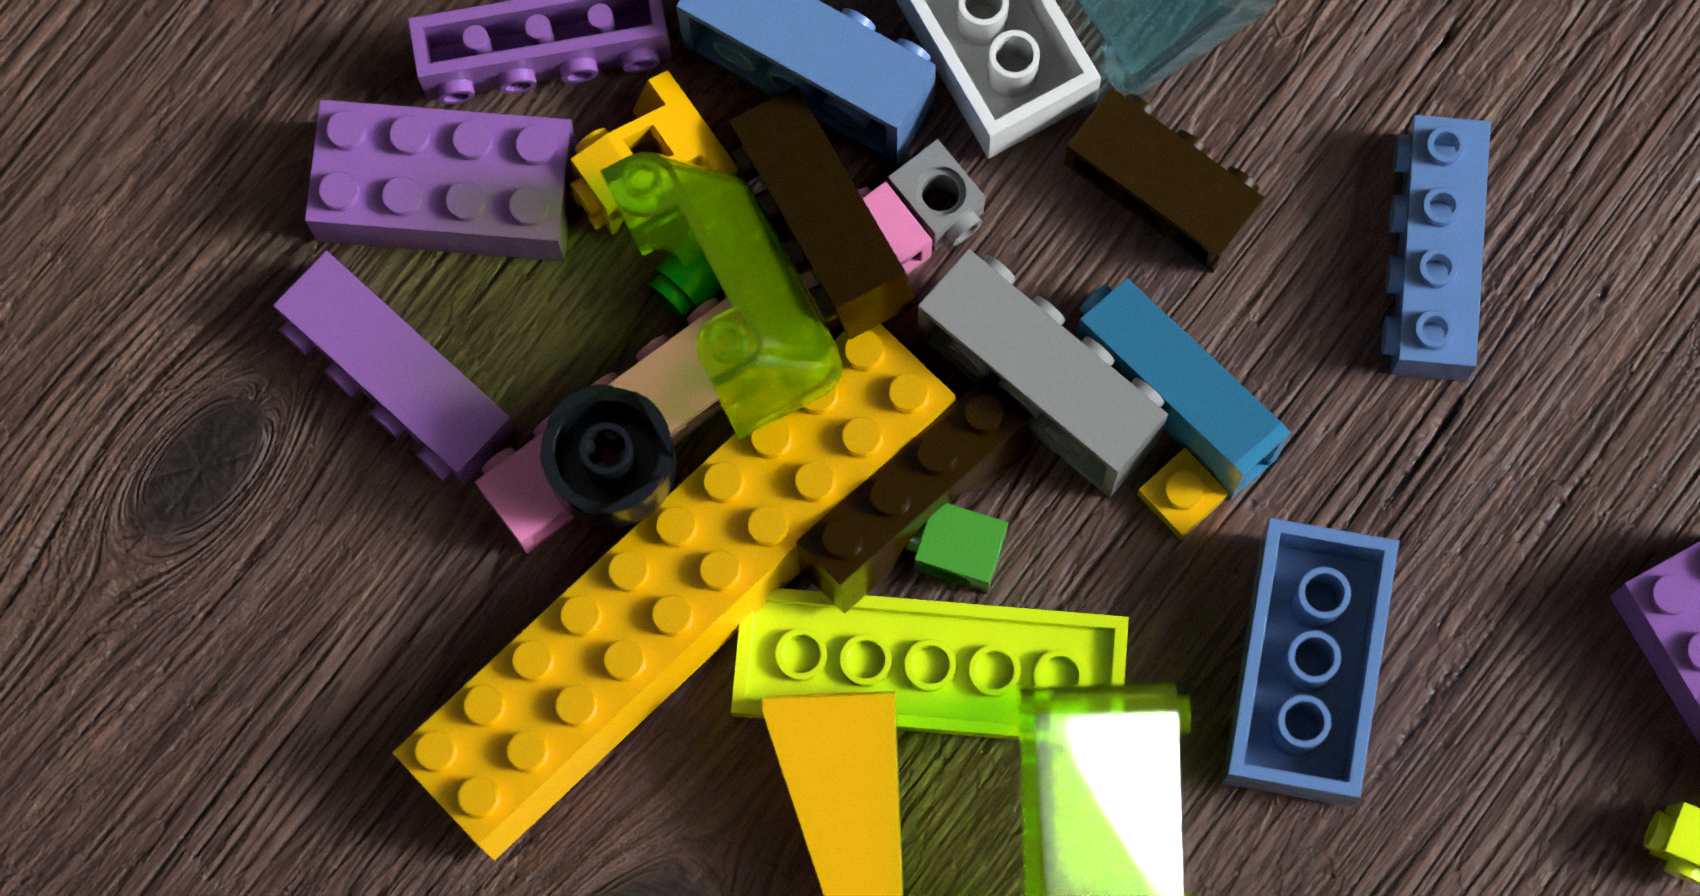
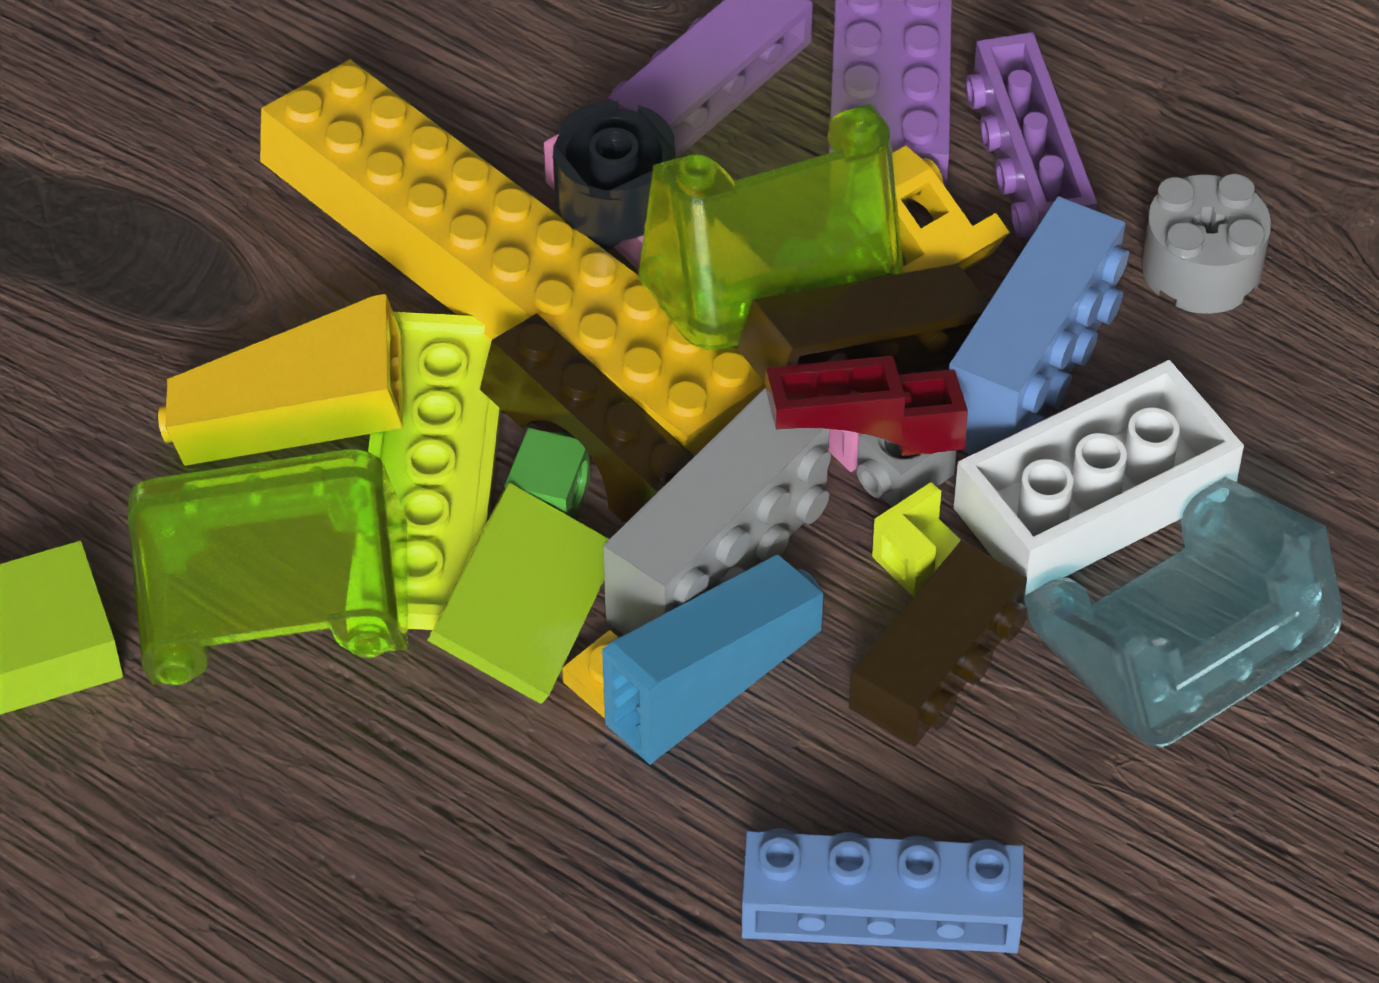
camera: 85 degrees right, 25 degrees down
(944, 210) = (869, 397): none -> dark red slope
(1039, 191) = (912, 539): none -> neon yellow panel
(1100, 569) = (523, 594): none -> lime tile
(1310, 662) = (421, 761): medium blue brick -> none

